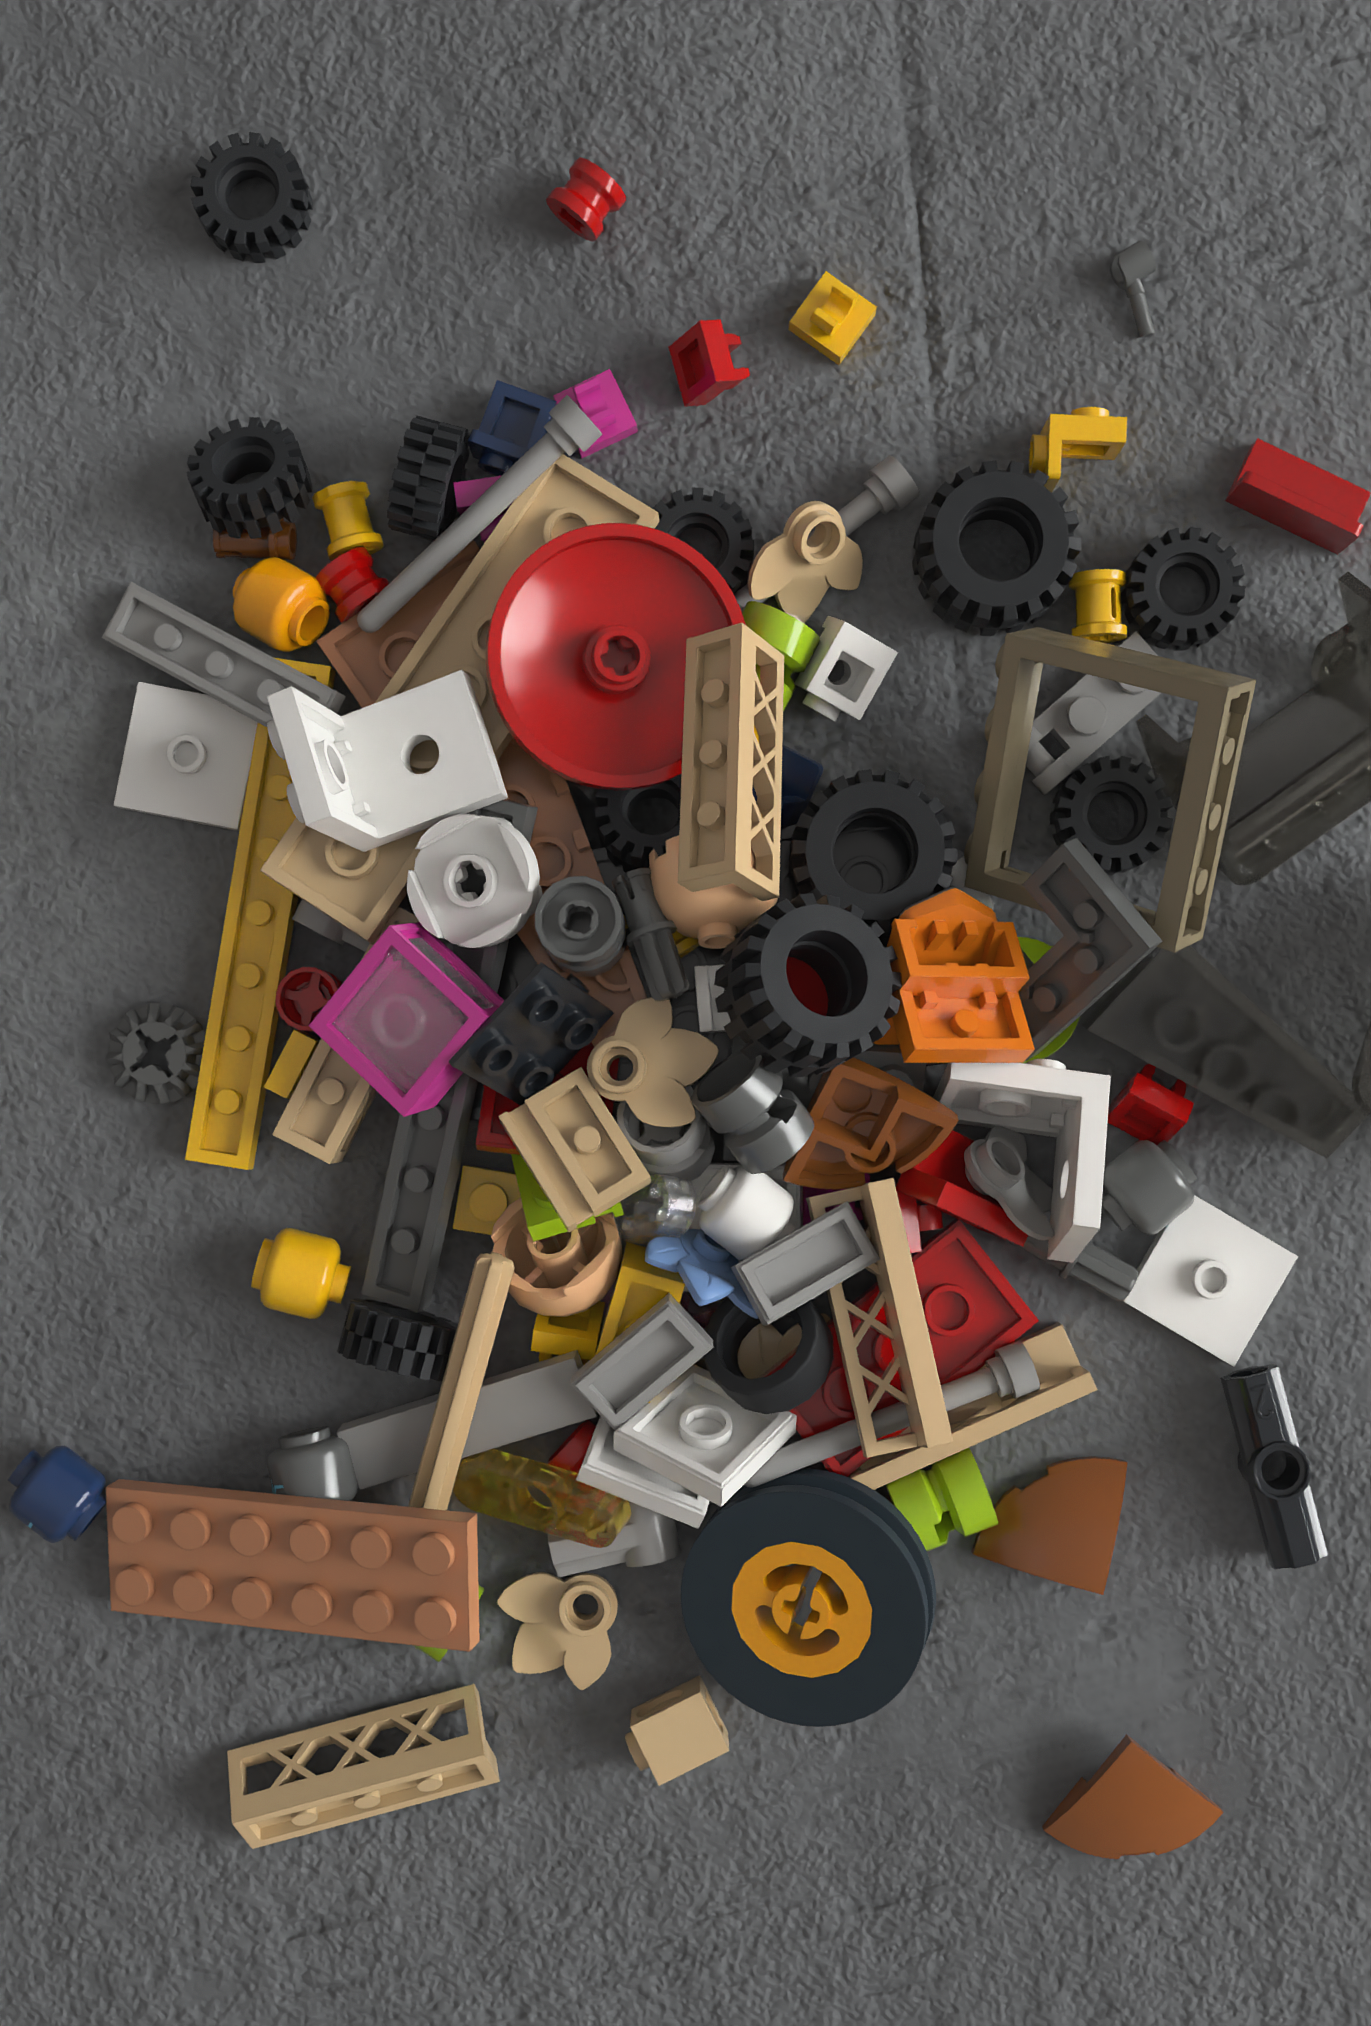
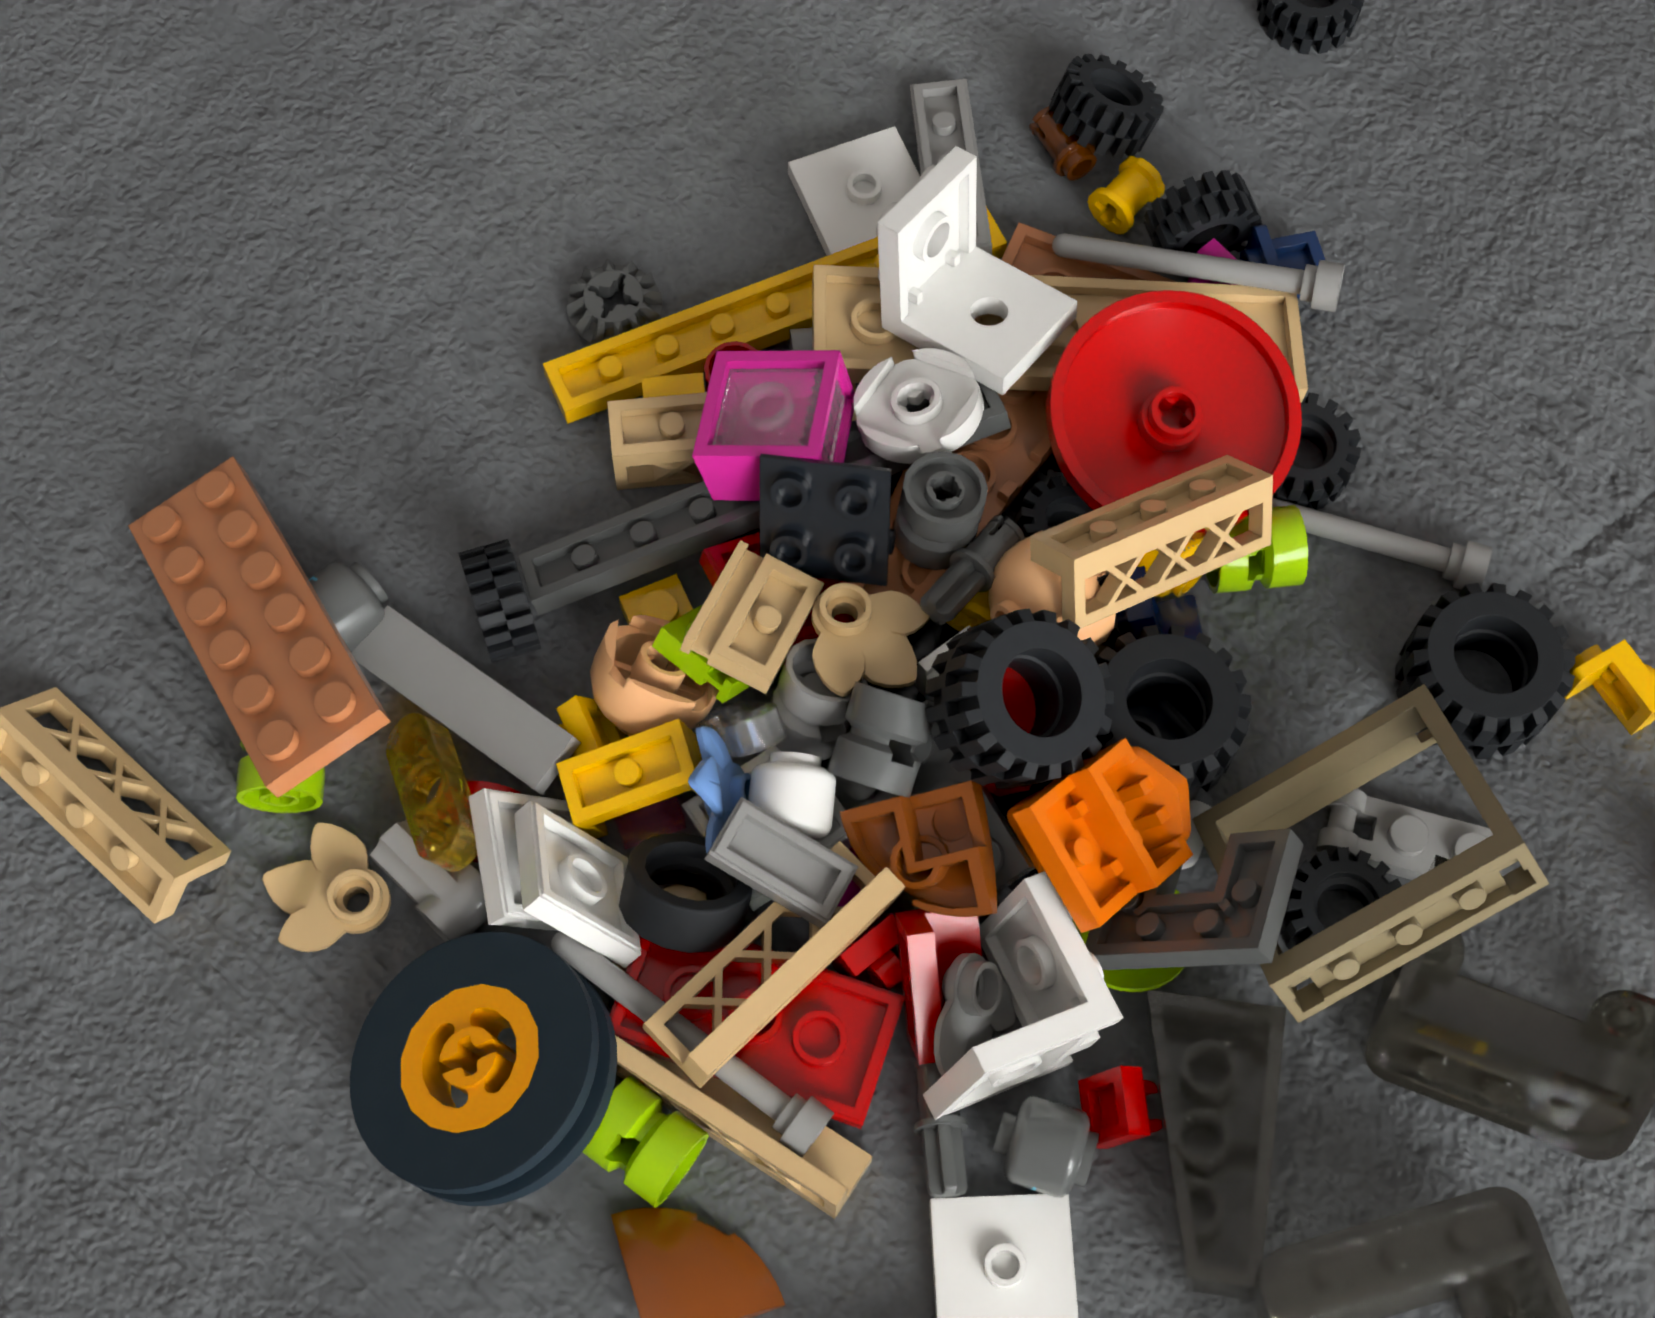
camera: 50 degrees right, 20 degrees down
(57, 1493) = (204, 426): dark blue head -> none
(280, 604) = (1027, 183): light orange head -> none
(300, 1273) = (504, 498): yellow head -> none
(351, 582) = (1083, 215): red wheel -> none
(462, 1381) = (501, 657): tan axle -> none
(586, 199) = (1499, 213): red wheel -> none
(605, 407) = (1351, 325): dark pink tile -> none
(642, 1361) = (606, 787): light grey tile -> none
(677, 1731) = (289, 1042): tan brick -> none
(705, 362) = (1447, 369): red tile -> none
(804, 568) = (1349, 539): tan plate -> none
(832, 318) = (1560, 446): yellow tile -> none
(864, 665) = (1317, 610): white brick -> none
(1099, 605) = (1512, 783): yellow bush -> none
(1209, 562) = (1604, 831): black tyre -> none

